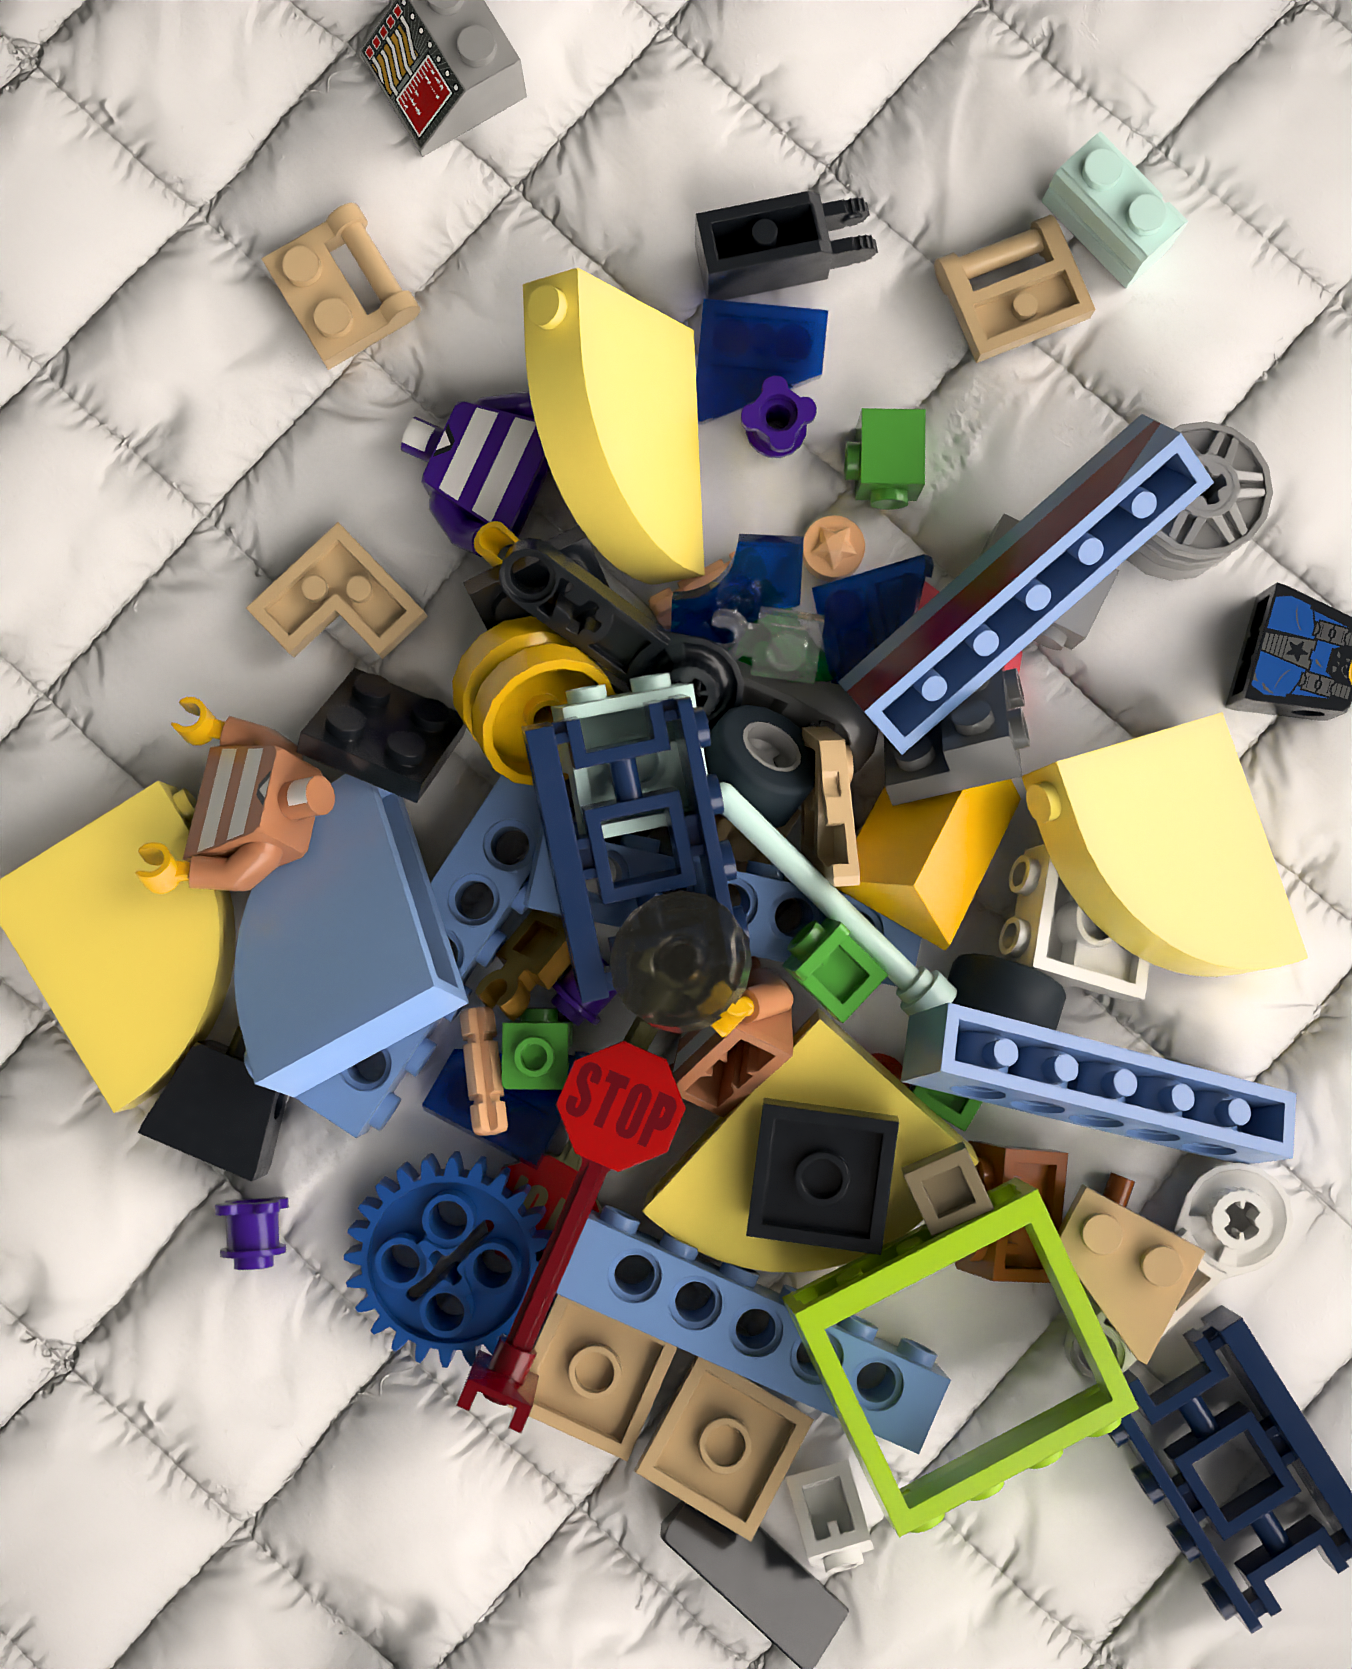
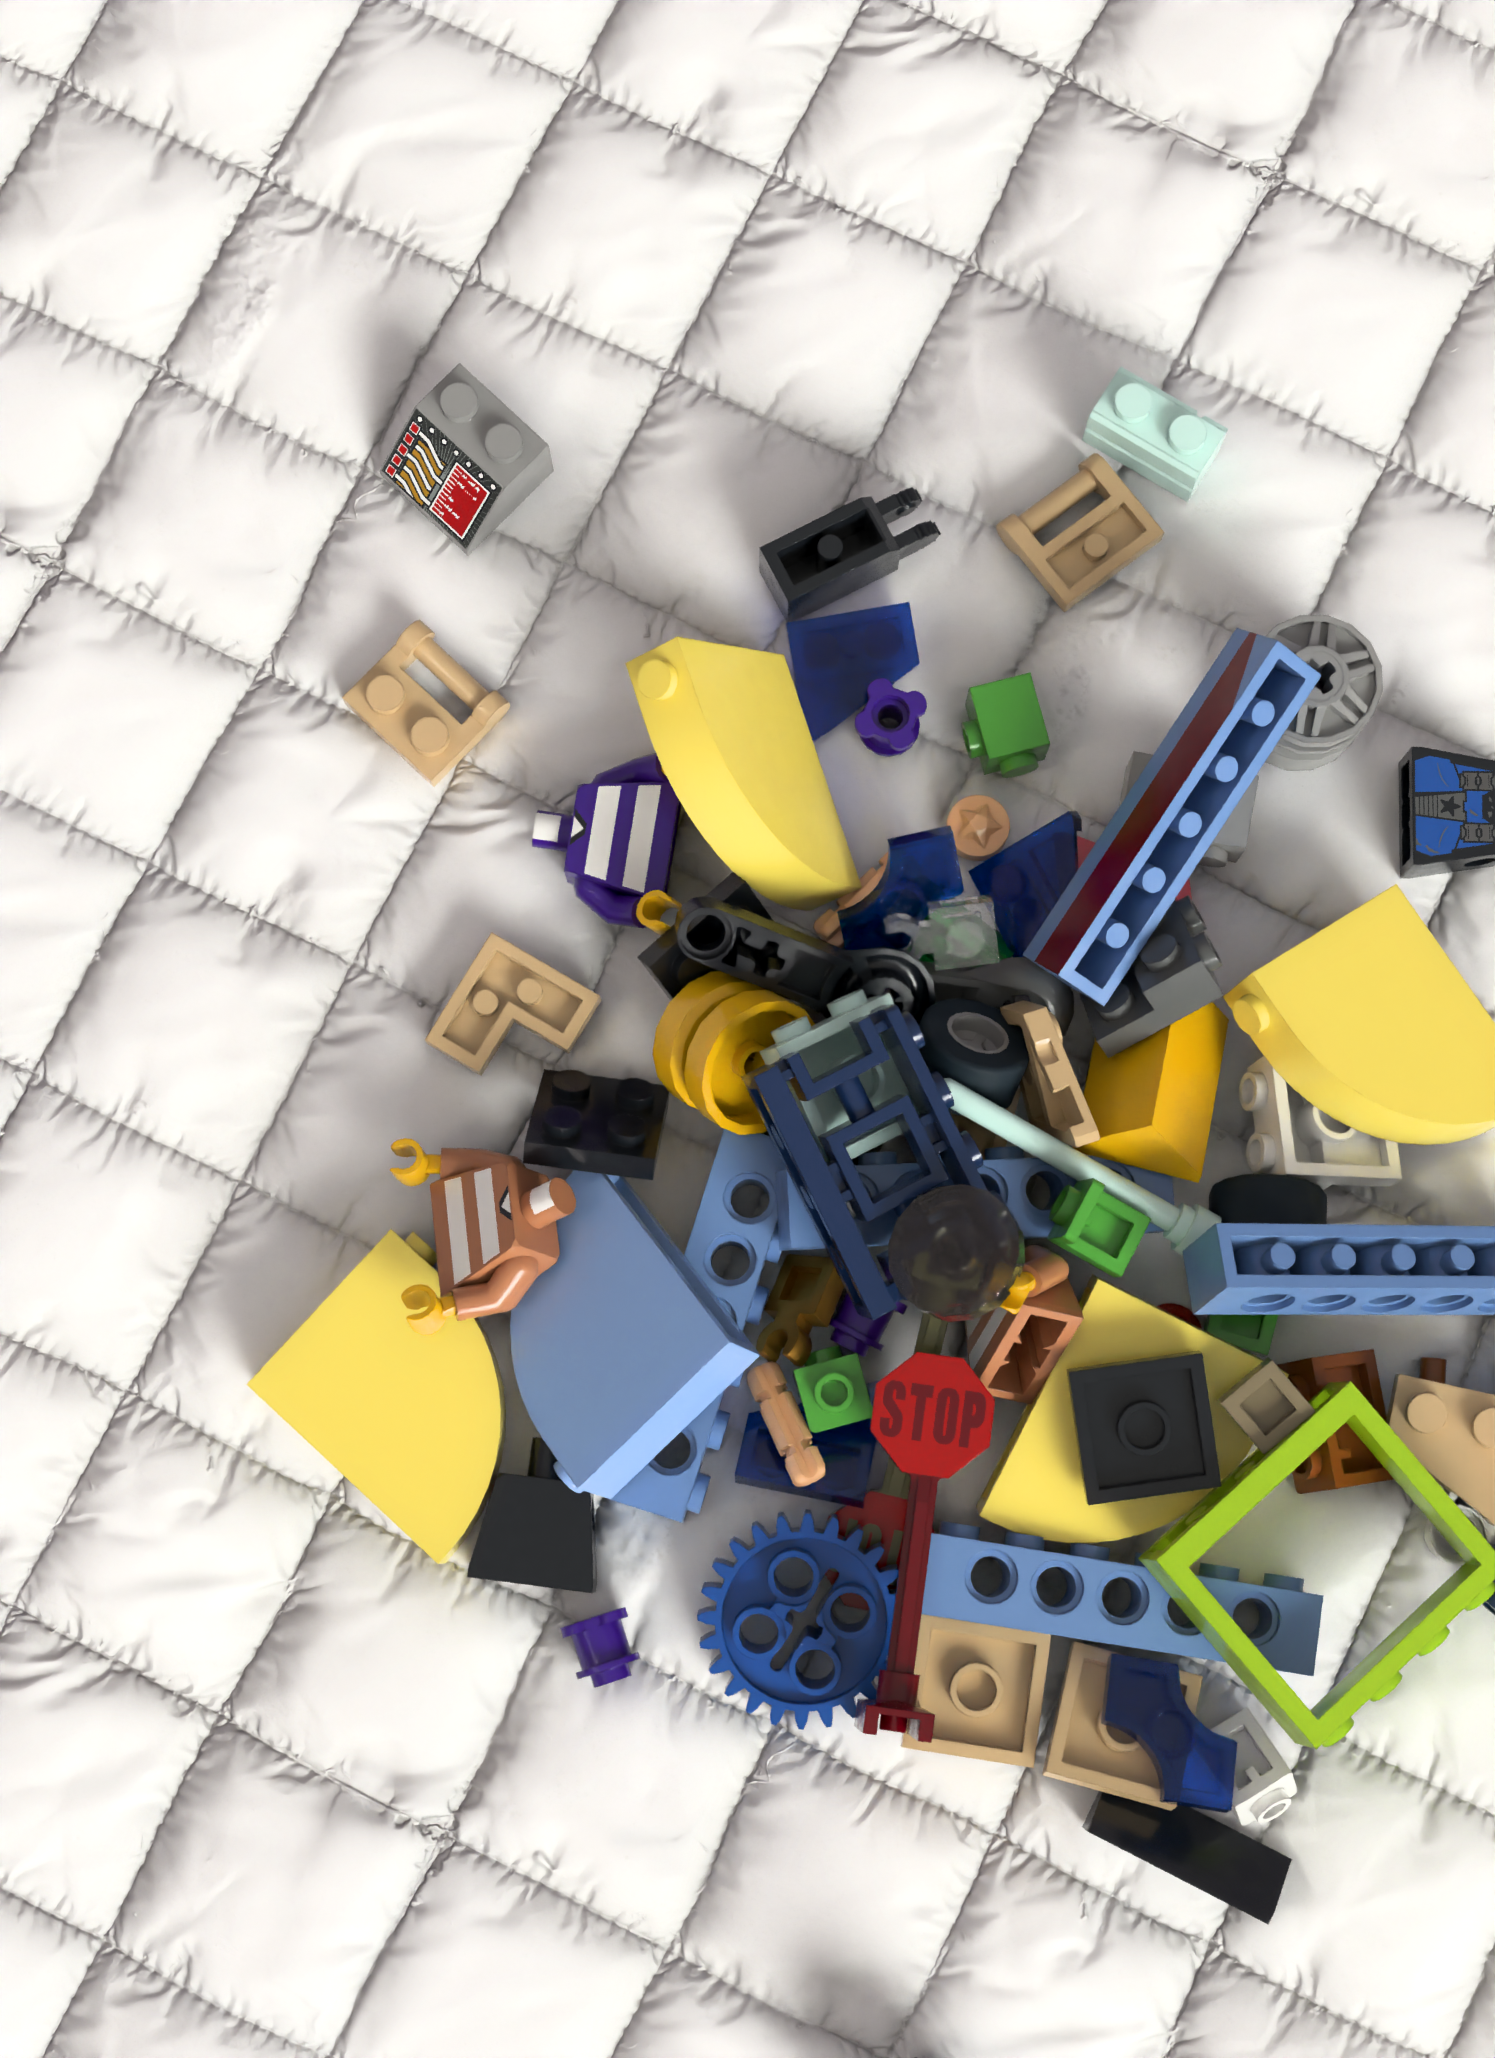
camera: 15 degrees left, 5 degrees down
(776, 1500) = (1190, 1760): none -> clear blue tile

